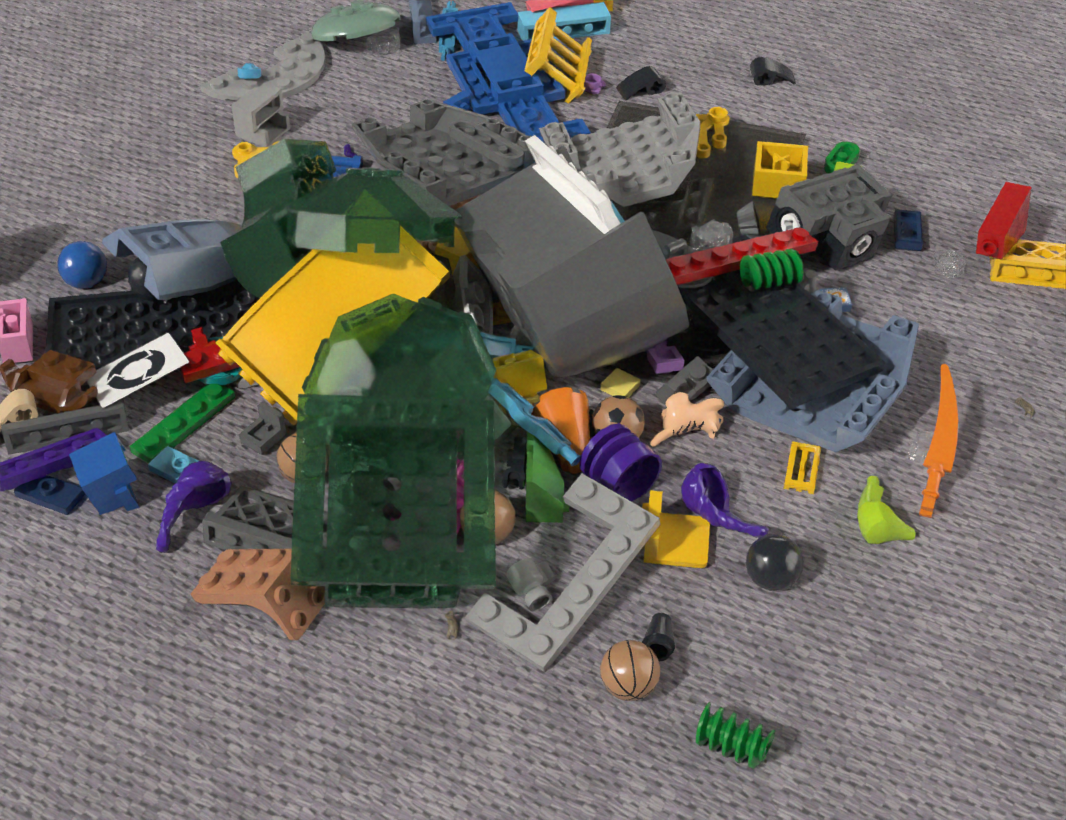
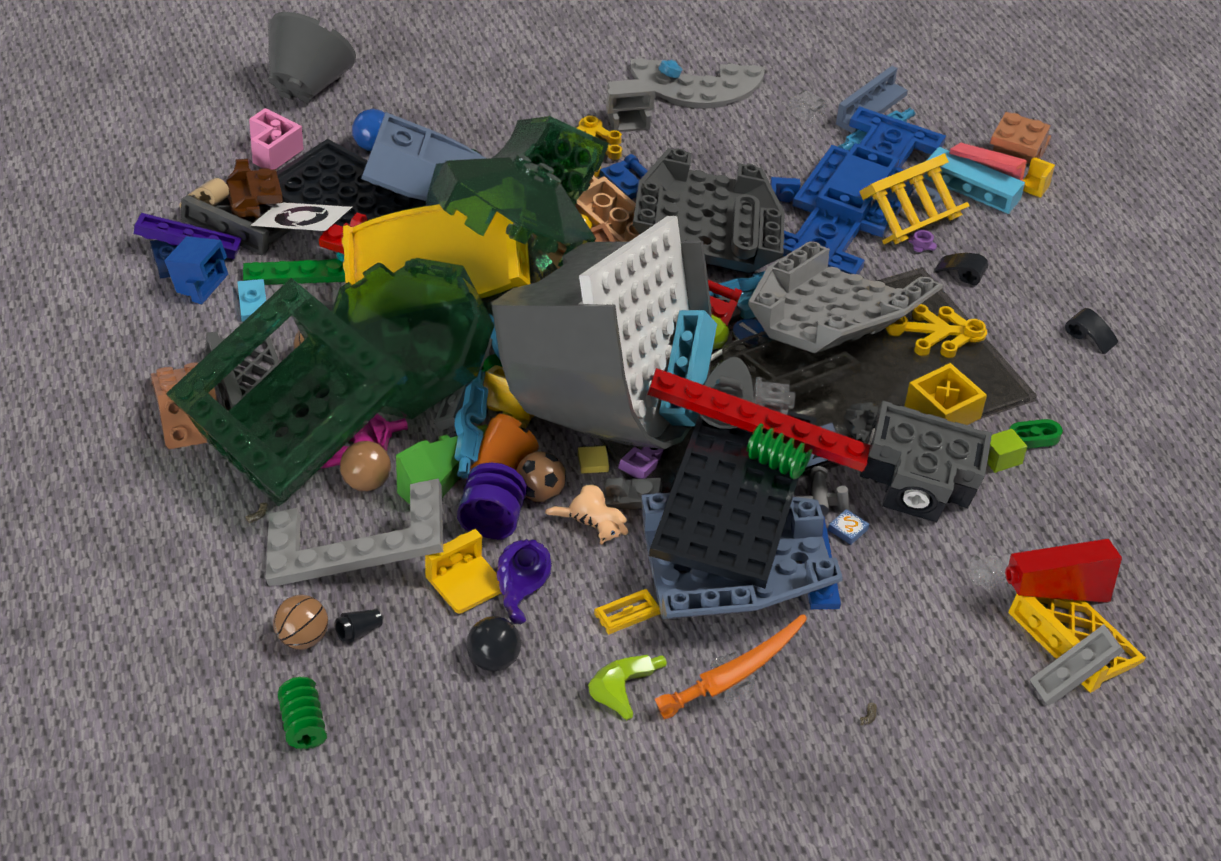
camera: 45 degrees right, 0 degrees up
(196, 487) = (225, 311): dark purple hair -> none
(354, 21) = (800, 77): sand green brick -> none
(530, 581) = (337, 523): light grey piece -> none
(908, 230) = (997, 523): dark blue plate -> none

